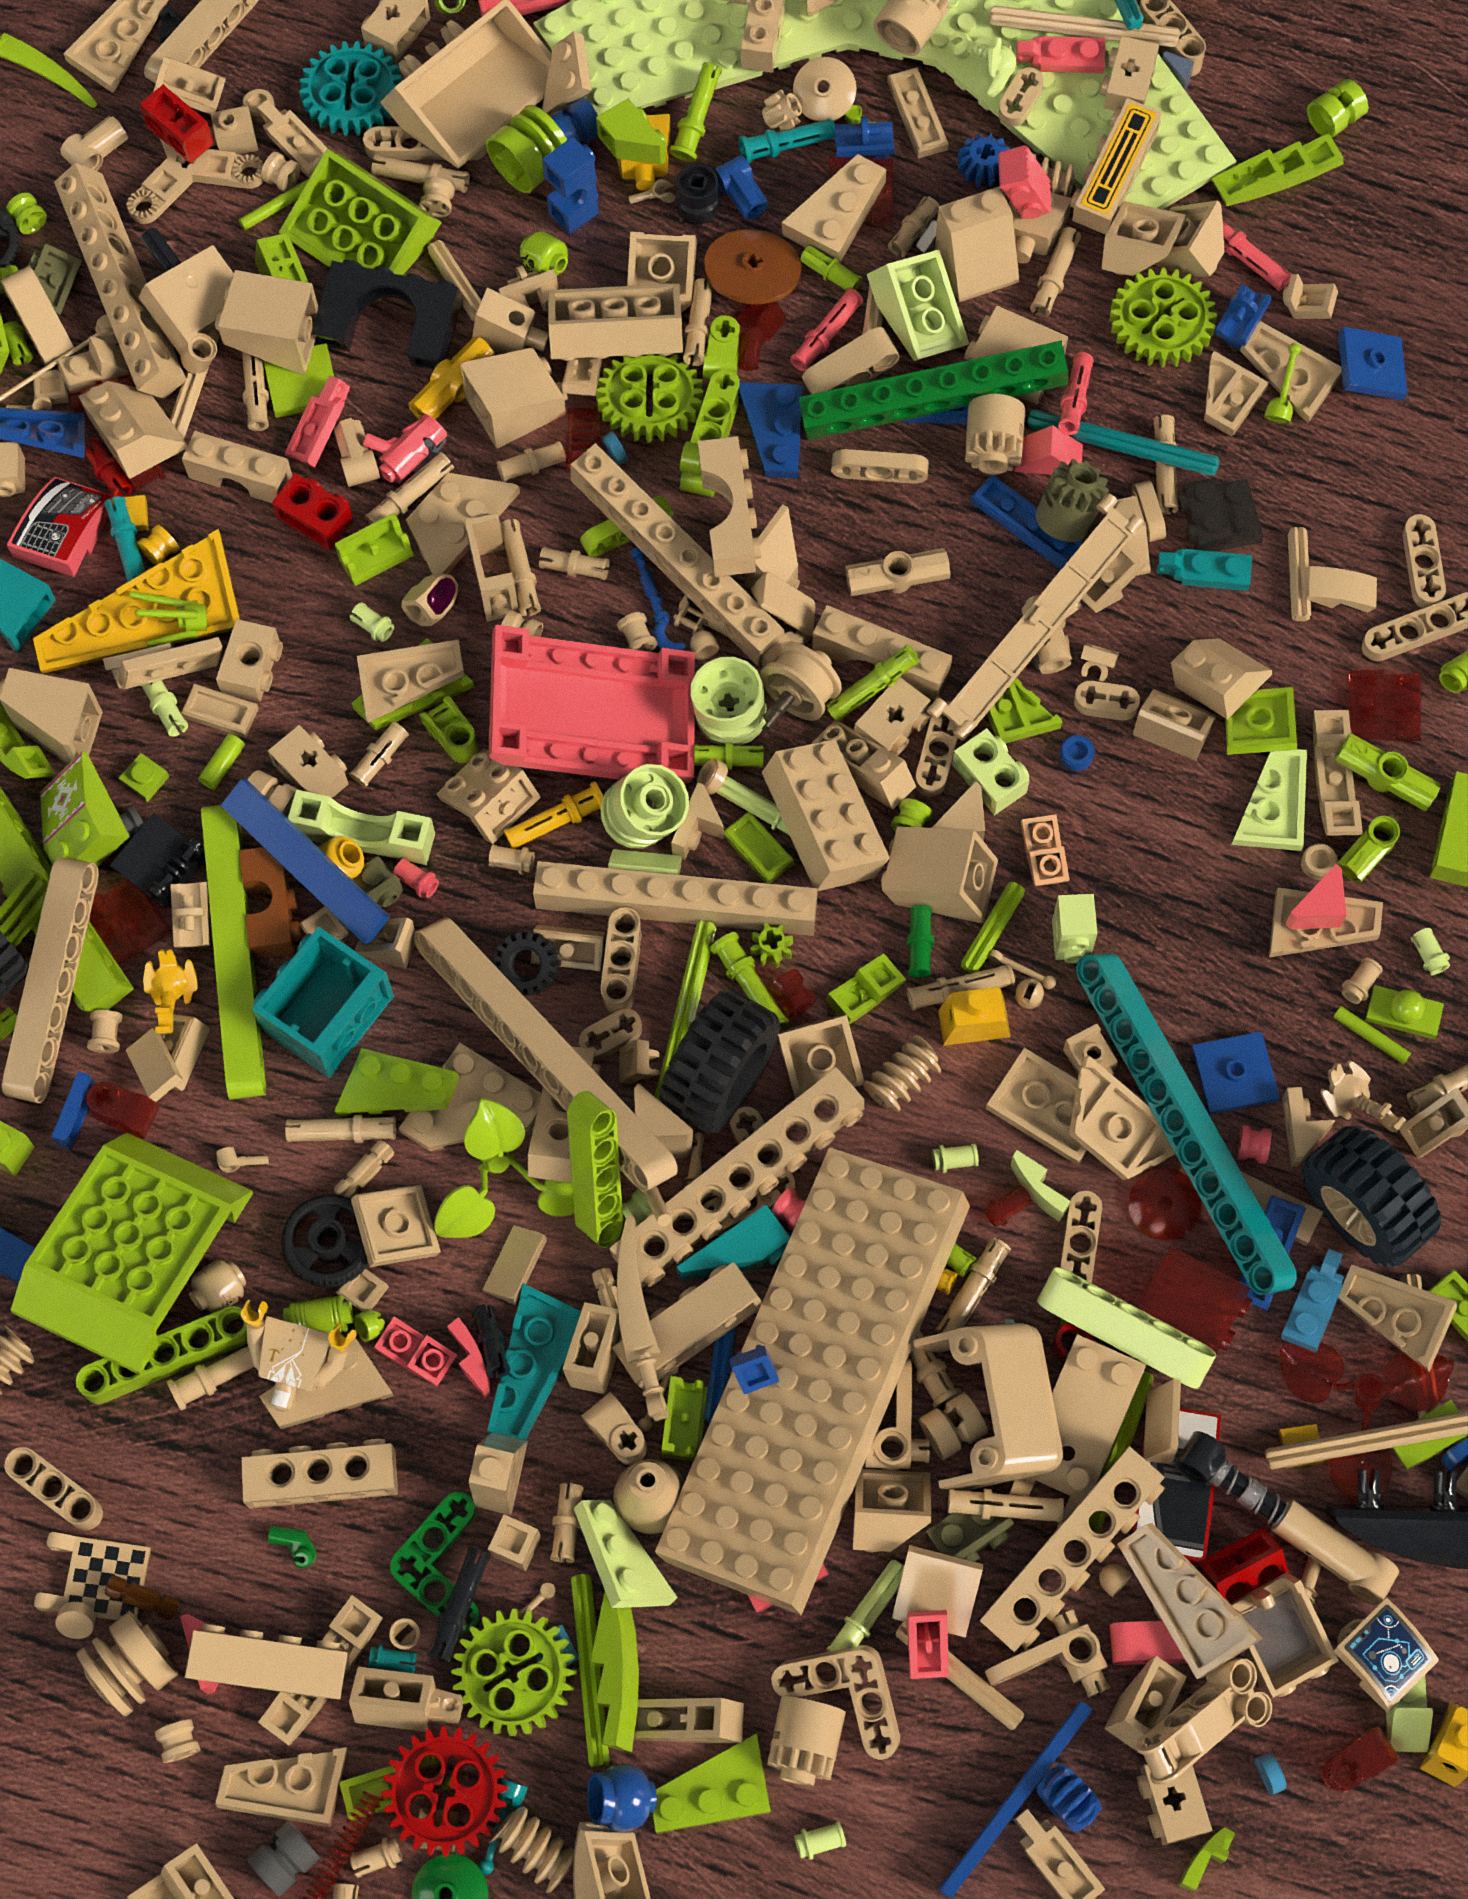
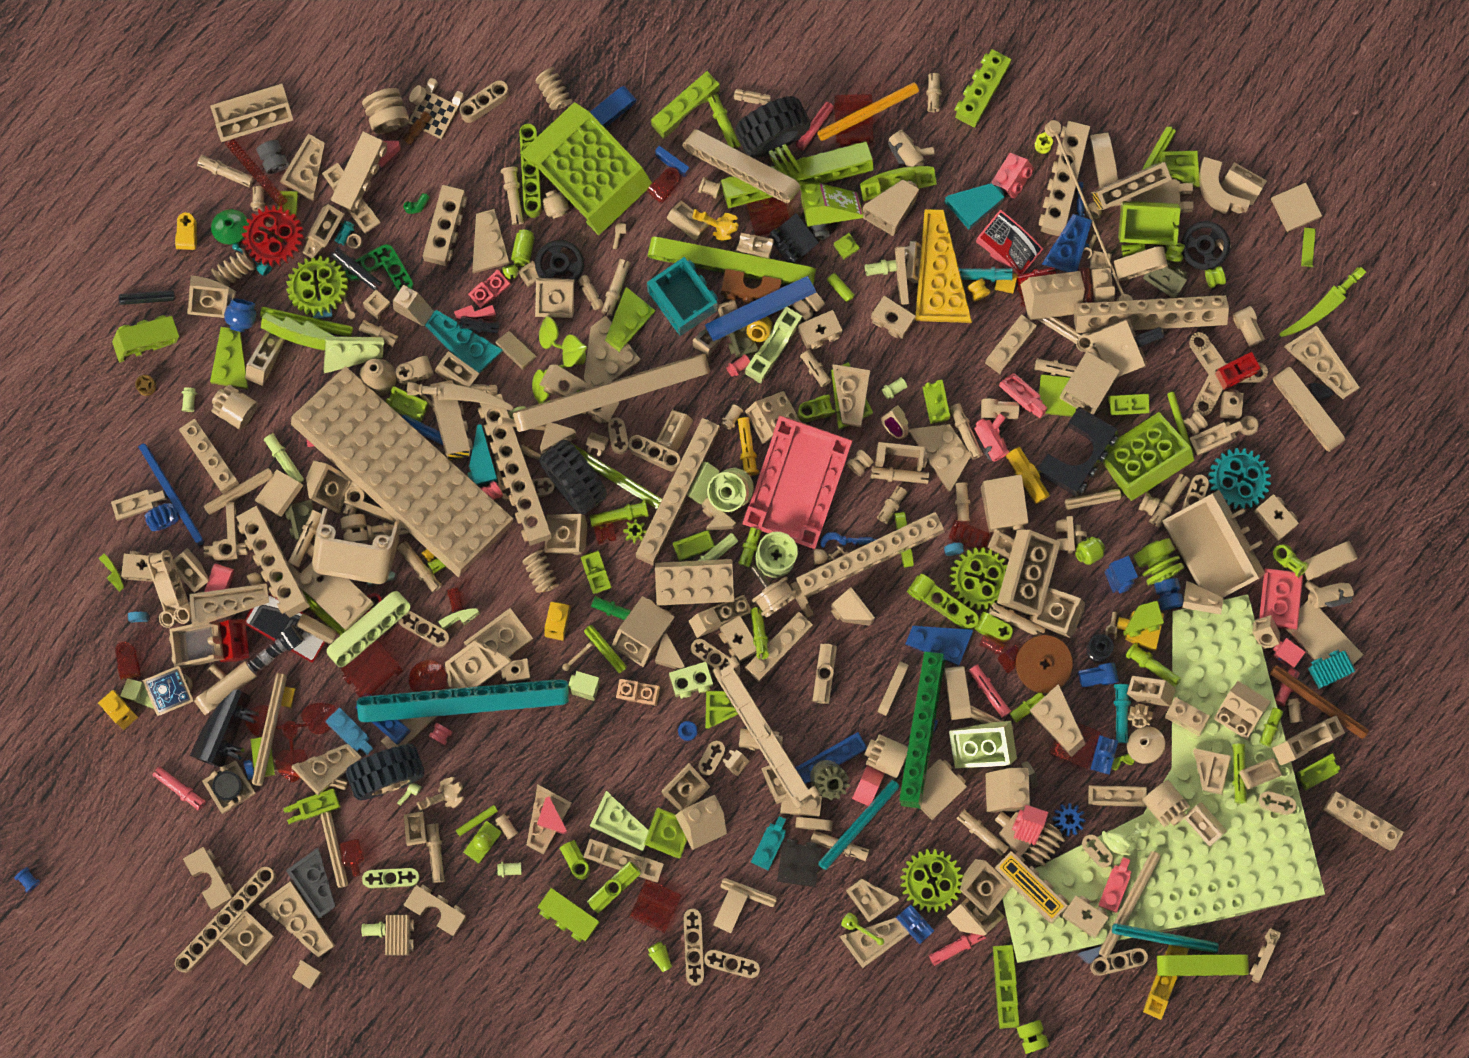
camera: 105 degrees right, 10 degrees up
(154, 1065) = (680, 205): tan tile -> none
(177, 1741) = (344, 125): tan wheel -> none
(189, 615) = (923, 292): lime plant -> none
(191, 84) = (1265, 386): tan hinge -> none
(219, 710) = (871, 295): tan tile -> none
(293, 1353) = (503, 227): tan torso -> none
(308, 515) = (968, 373): red brick -> none
(507, 324) = (1053, 508): tan torso -> none
(548, 961) = (675, 411): black tyre -> none
(595, 1169) = (536, 394): lime beam -> none
(636, 632) = (837, 523): tan bush -> none
(712, 775) = (739, 533): tan tile -> none
(732, 540) = (855, 581): tan arch -> none
(739, 99) = (1151, 691): none -> tan brick
(754, 1369) = (410, 438): blue tile -> none
(785, 602) = (822, 604): tan slope -> none
(850, 1677) = (254, 437): tan beam -> none
(912, 814) = (679, 628): lime wheel -> none
(913, 226) = (1040, 764): tan pin -> none
(917, 1753) = (209, 456): none -> tan brick
(927, 1644) = (255, 478): coral slope -> none
(939, 990) = (580, 596): tan pin -> none
(954, 1157) = (490, 582): yellowish green pin -> none
(1037, 994) = (560, 657): tan hinge -> none
(1070, 417) = (880, 799): coral pin -> none
(1235, 1073) = (482, 742): blue plate -> none
(1301, 1134) = (435, 760): tan slope -> none
(1309, 300) = (914, 968): tan bracket -> none
(1318, 861) = (580, 833): tan tile -> none
(1372, 363) = (860, 986): blue plate -> none

